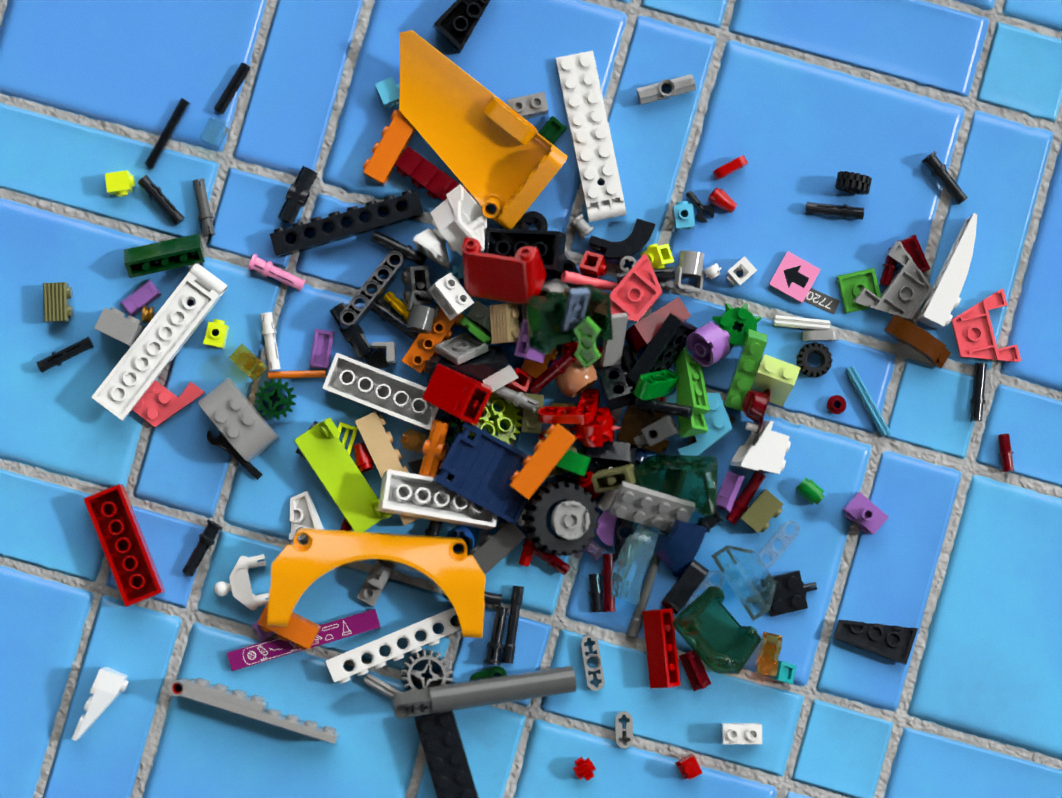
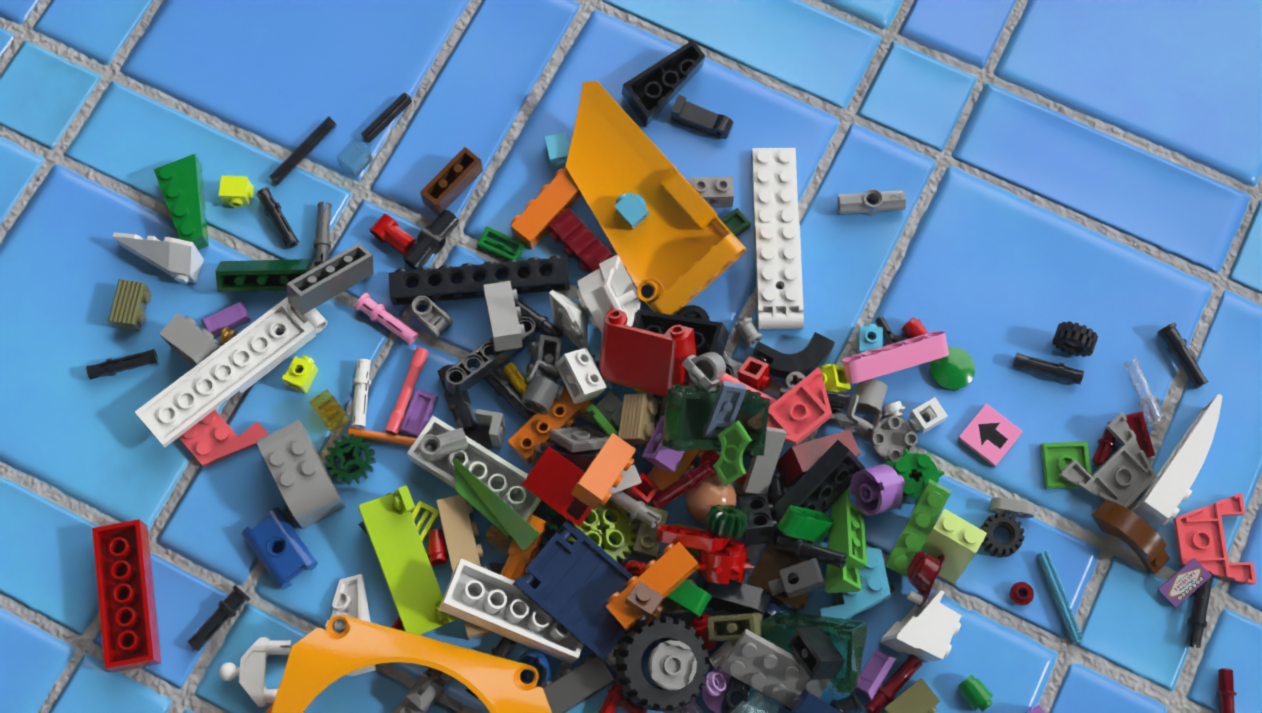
camera: 15 degrees right, 15 degrees down
(75, 195) = (183, 194): none -> green wedge
(84, 255) = (172, 256): none -> white wedge
(222, 250) = (330, 278): none -> dark grey brick
(222, 442) = (276, 498): black piece -> none
(222, 478) = (265, 539): none -> blue piece
(261, 195) = (388, 230): none -> red piece
(303, 140) = (451, 181): none -> reddish brown brick
(310, 309) = (415, 367): none -> coral piece
(314, 264) = (433, 319): none -> light grey piece
(354, 375) = (446, 444): none -> light grey piece
(373, 192) = (517, 253): none -> green tile
(376, 256) = (504, 315): none -> light grey brick
(403, 420) = (493, 507): none -> bright green wedge
(463, 139) = (632, 209): none -> medium azure brick
(488, 379) = (604, 472): none -> orange brick
(506, 38) = (700, 118): none -> black leg
(524, 446) = (635, 567): none -> red axle
(540, 476) = (646, 602): none -> reddish brown bracket
(553, 277) = (705, 369): none -> light grey piece
(592, 397) = (726, 521): none -> dark green gear
(606, 524) = (715, 683): none -> lavender plate
(680, 489) = (816, 653): none -> black brick
(706, 228) = (895, 357): none -> bright pink beam
(715, 294) = (892, 436): none -> light grey dish
(730, 167) = (932, 298): red beam -> none
(755, 225) = (953, 370): none -> green dish
(802, 323) = (989, 488): white axle -> none
(822, 301) = (1019, 469): dark grey sticker -> none
(920, 225) = (1148, 402): none -> clear pin
(964, 371) = (1184, 582): none -> tile

